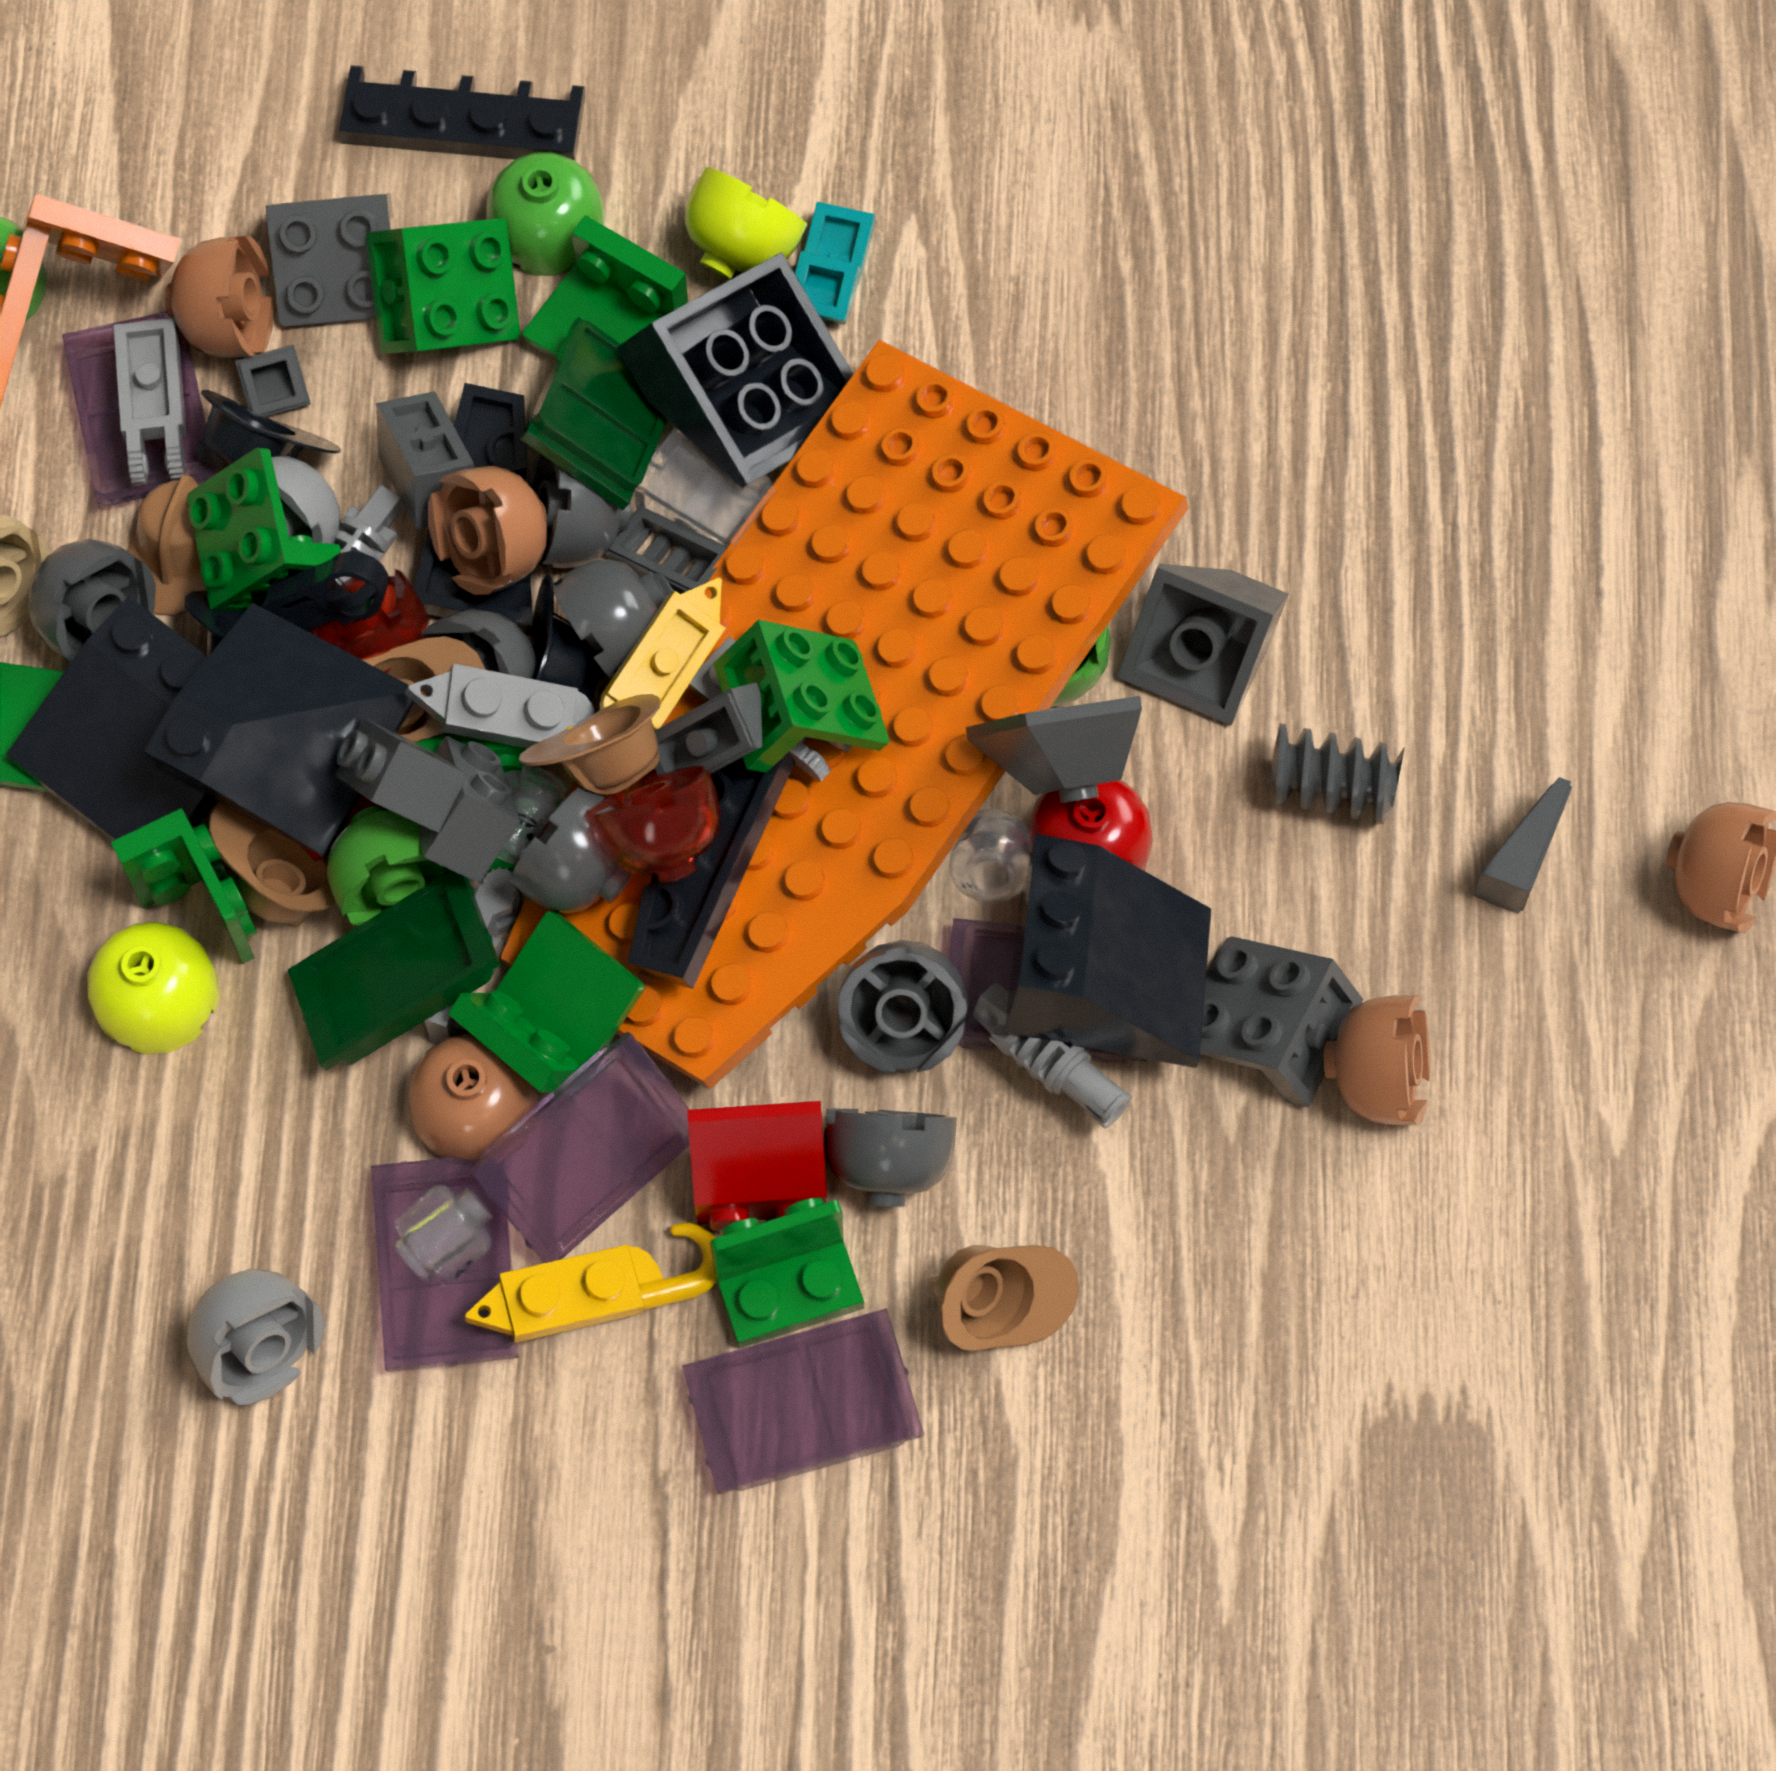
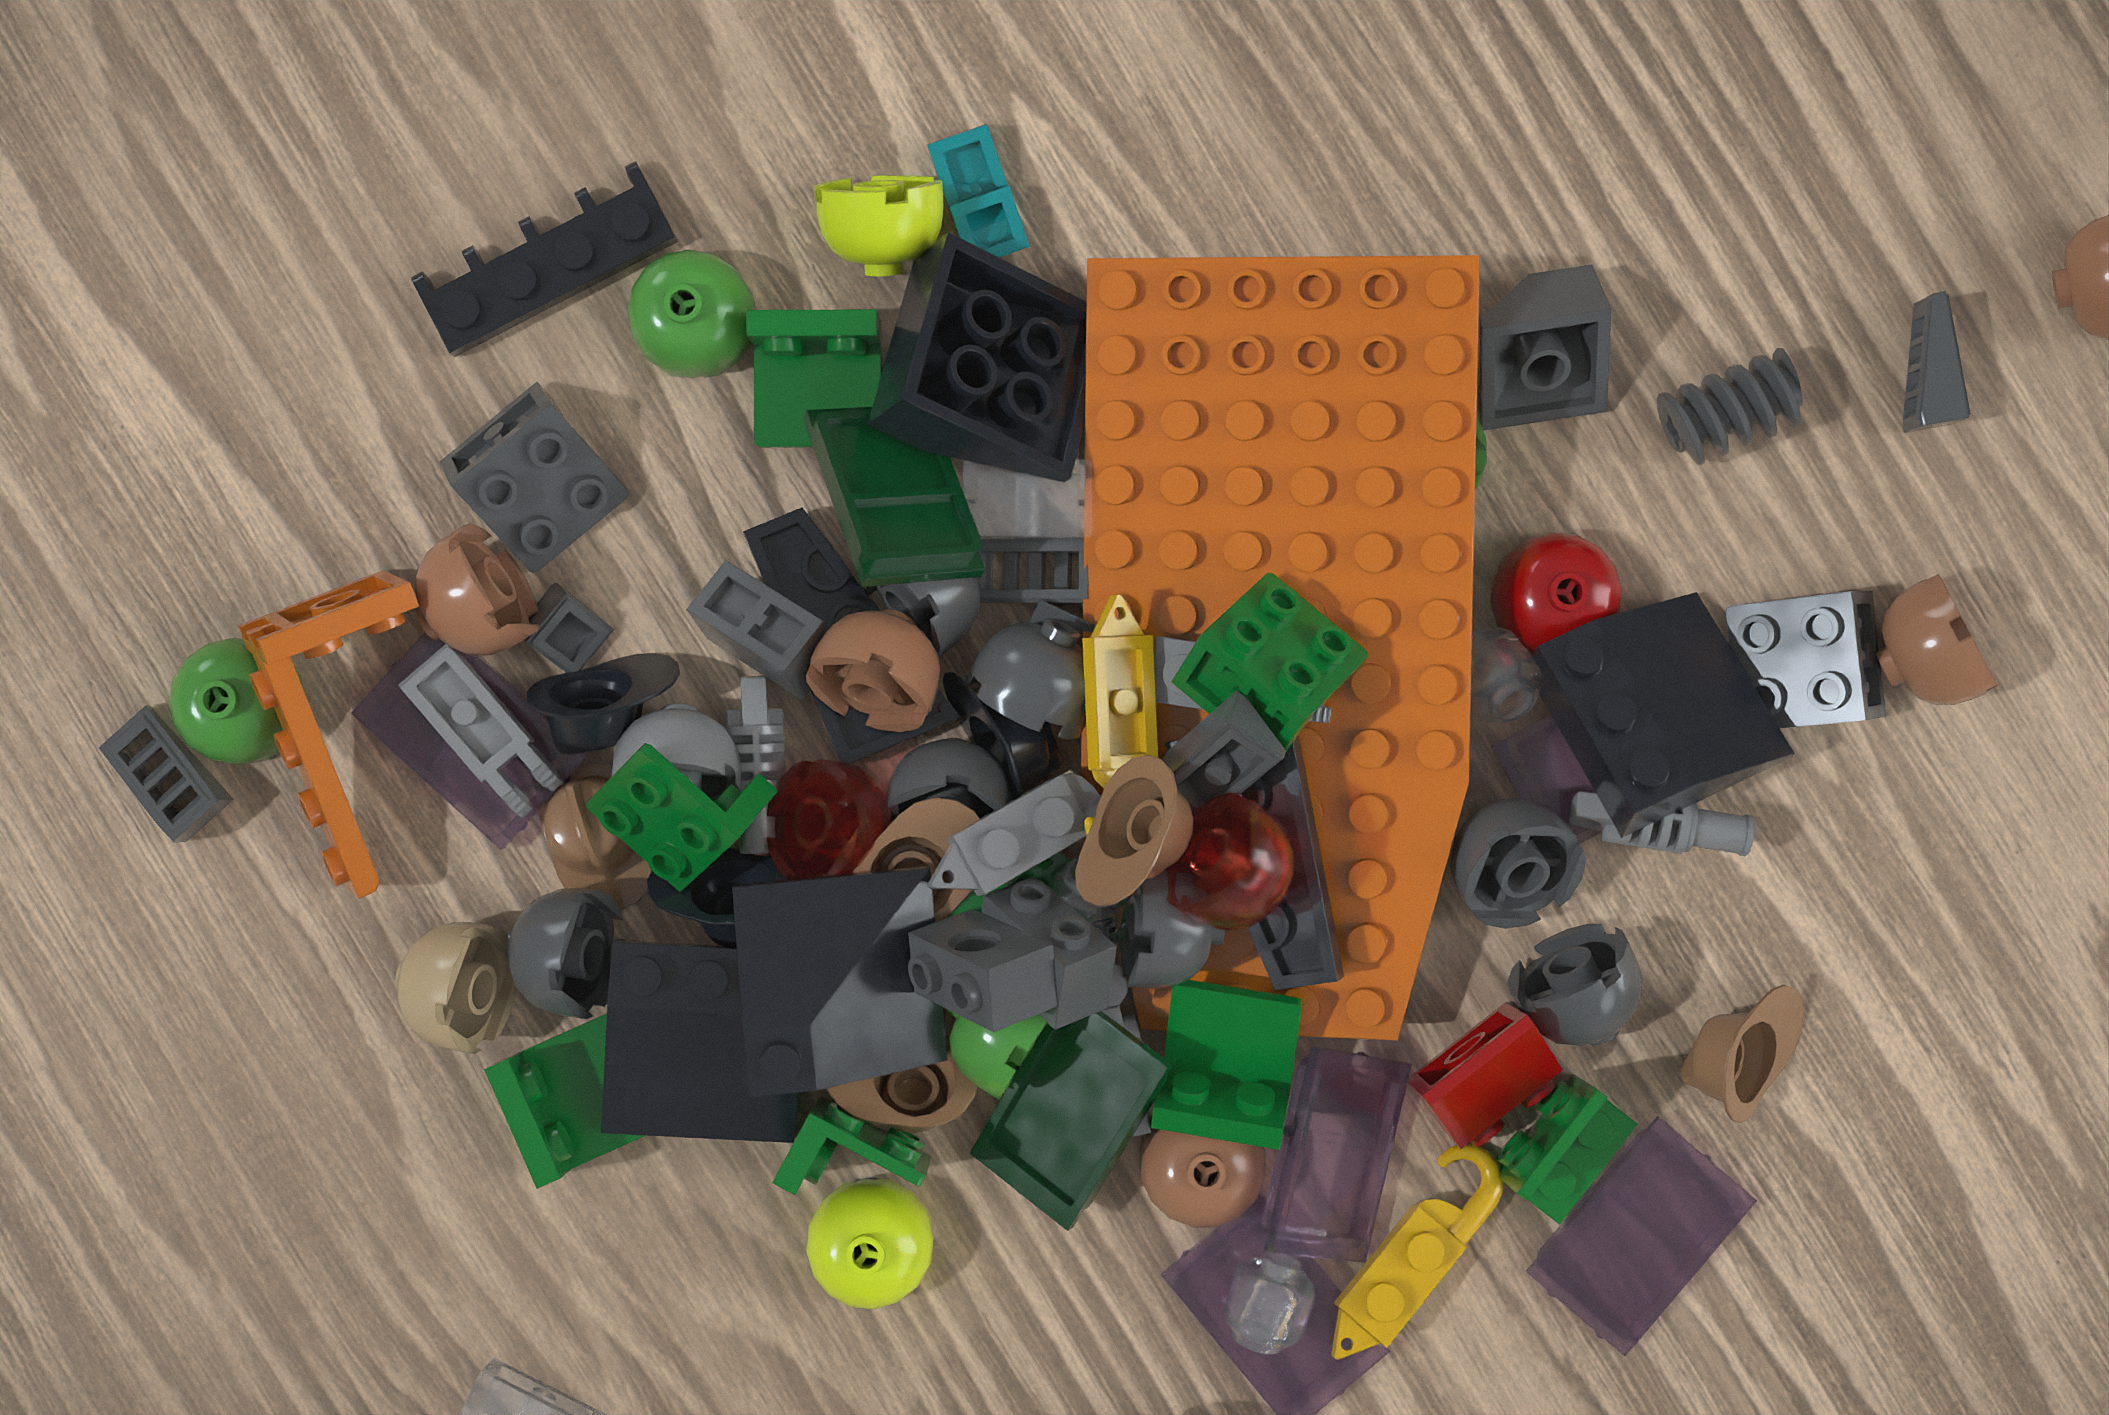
camera: 30 degrees left, 20 degrees up
(316, 598) = (791, 821): black piece -> none
(443, 285) = (661, 455): green bracket -> none
(1063, 746) = (1524, 560): dark grey slope -> none

